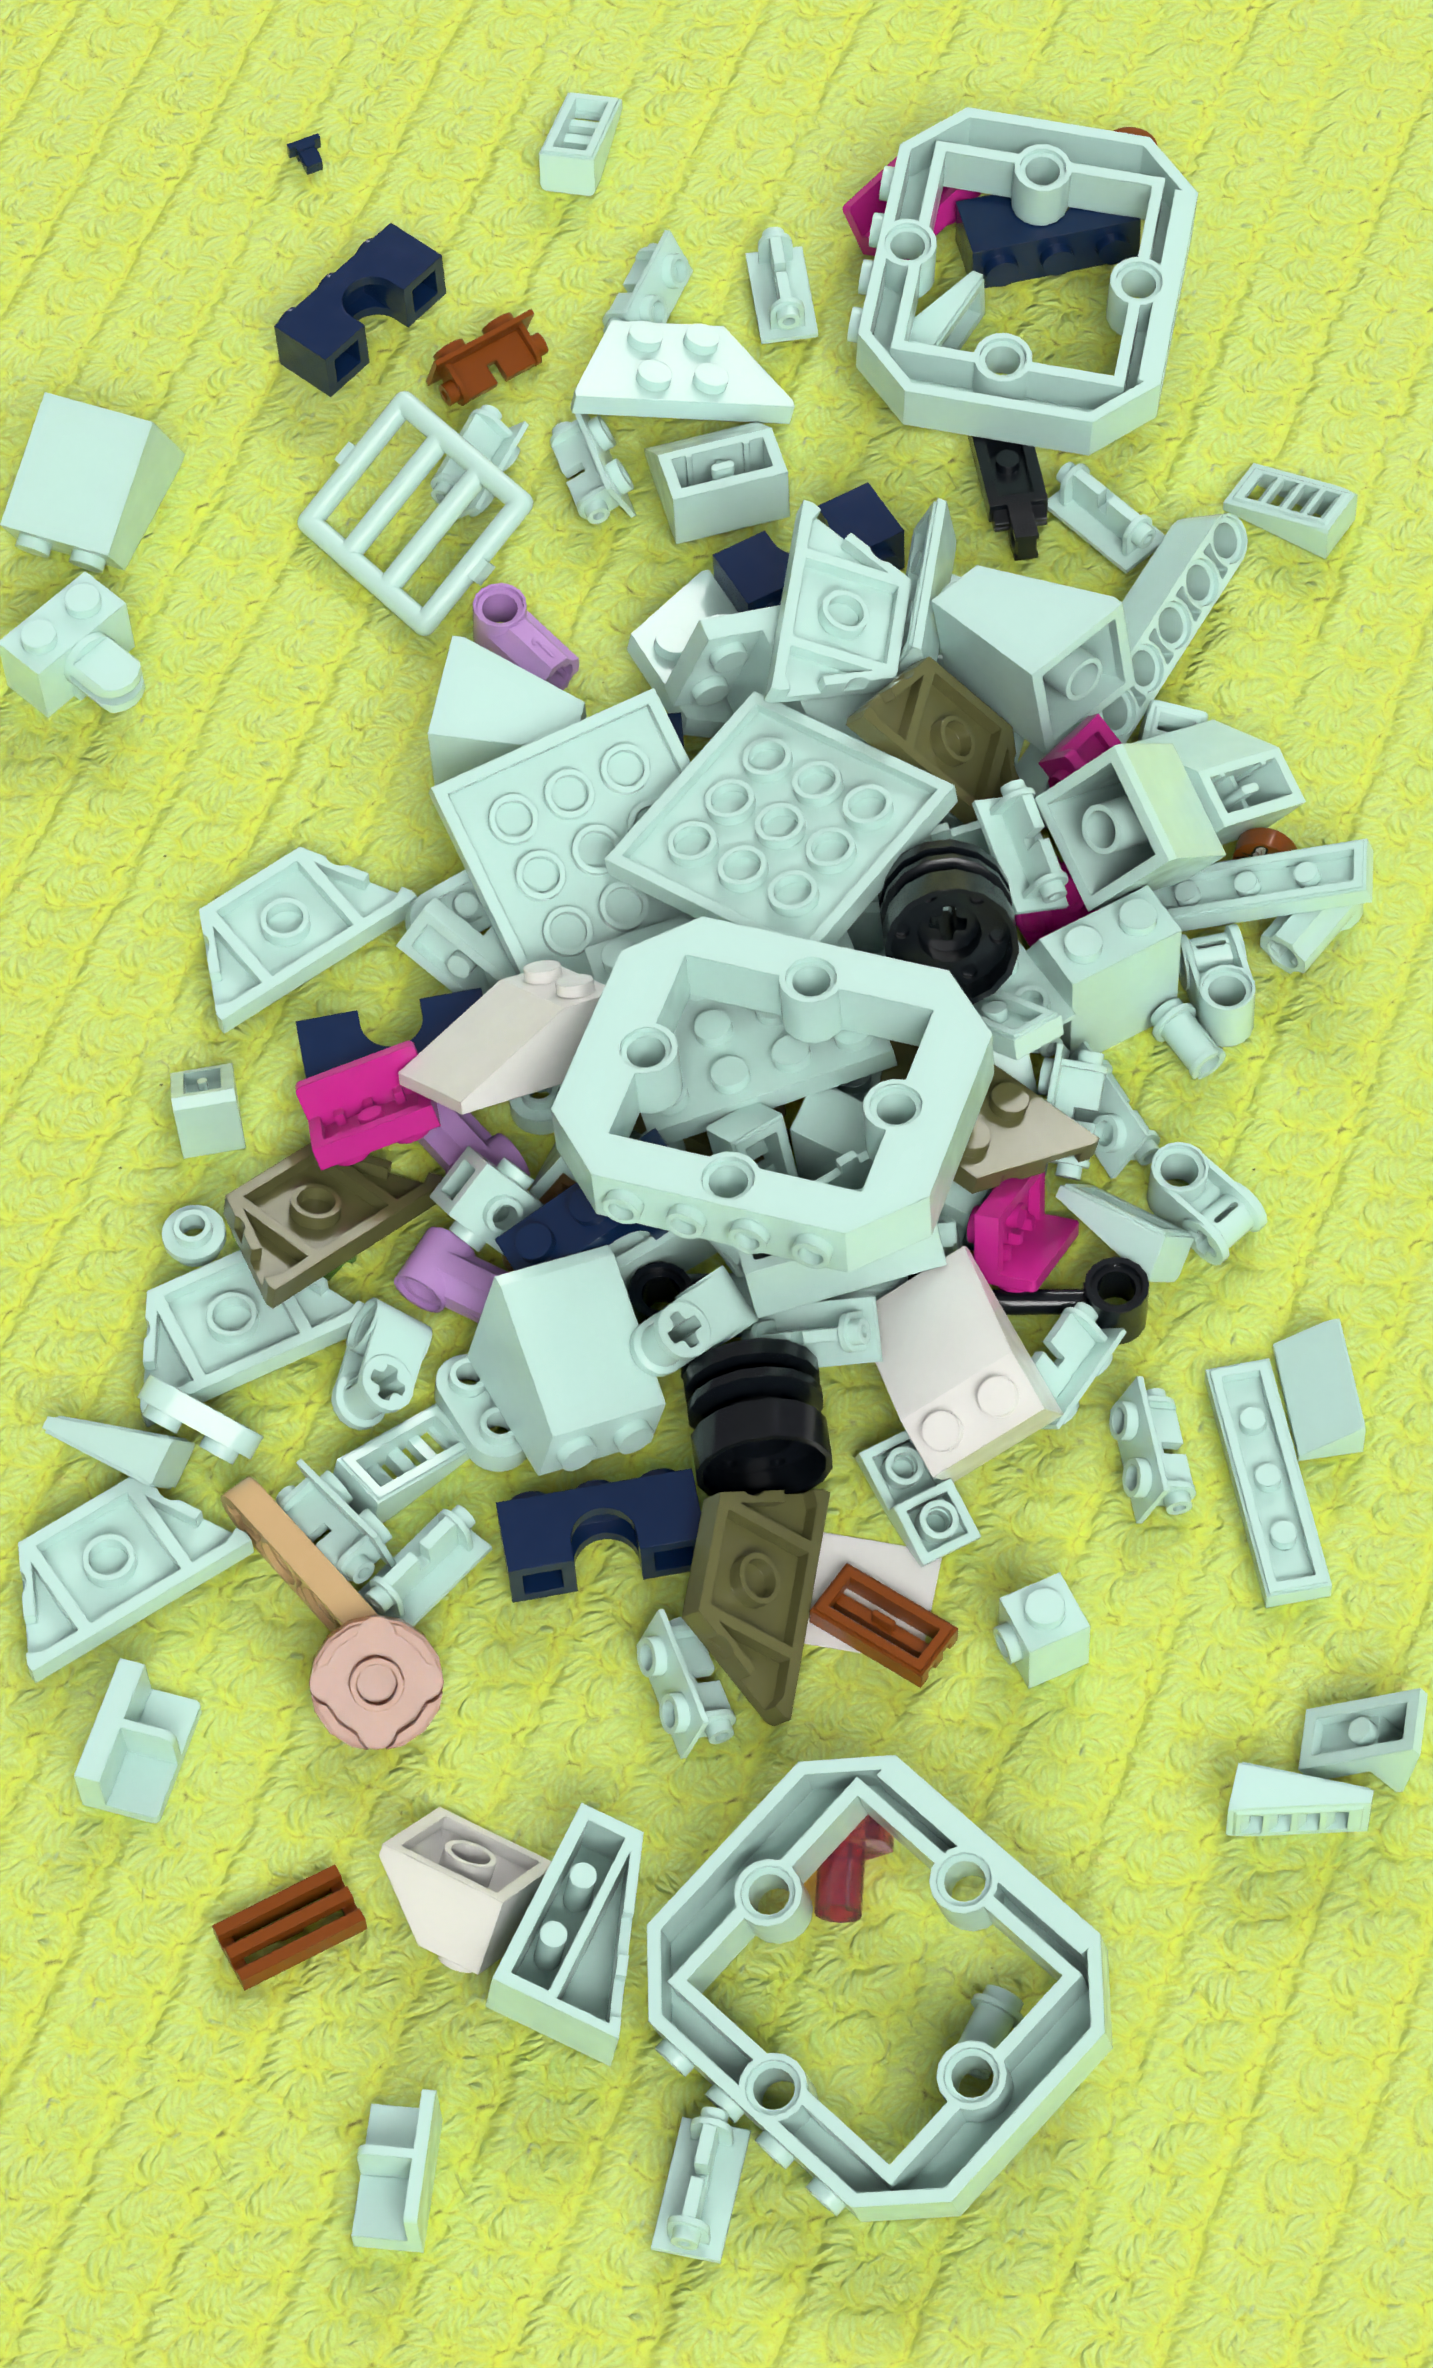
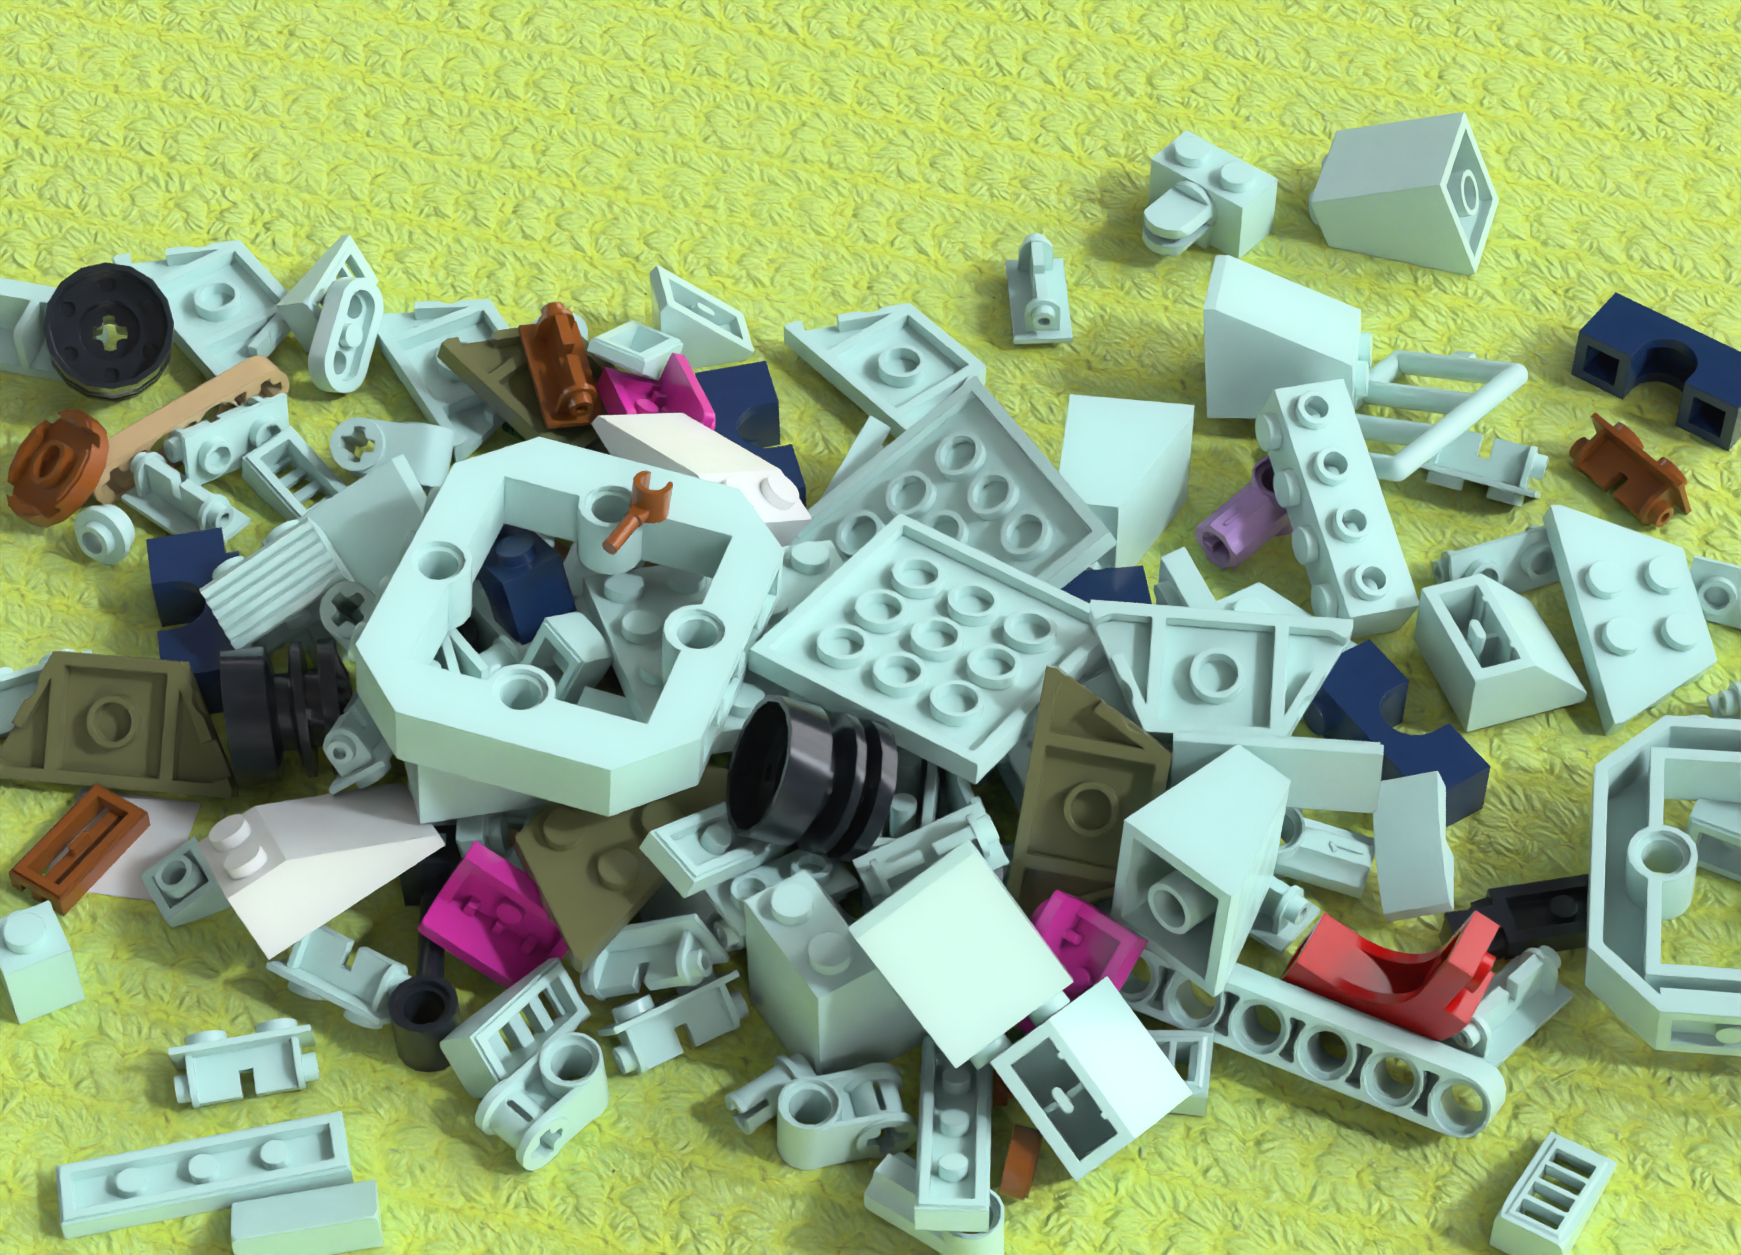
camera: 85 degrees right, 10 degrees down
(187, 809) = (1038, 294): none -> light aqua hinge
(204, 1625) = (101, 297): none -> black wheel
(281, 1128) = (636, 348): none -> light aqua slope
(292, 1191) = (560, 368): none -> dark orange hinge
(332, 593) = (1275, 336): none -> light aqua slope
(463, 1638) = (104, 533): none -> light aqua plate
(558, 558) = (1336, 507): none -> light aqua brick
(629, 1409) = (276, 588): none -> light aqua brick
(659, 1016) = (644, 507): none -> dark orange hand
(977, 541) = (1412, 847): none -> light aqua slope
(1119, 529) = (1419, 992): none -> red arch

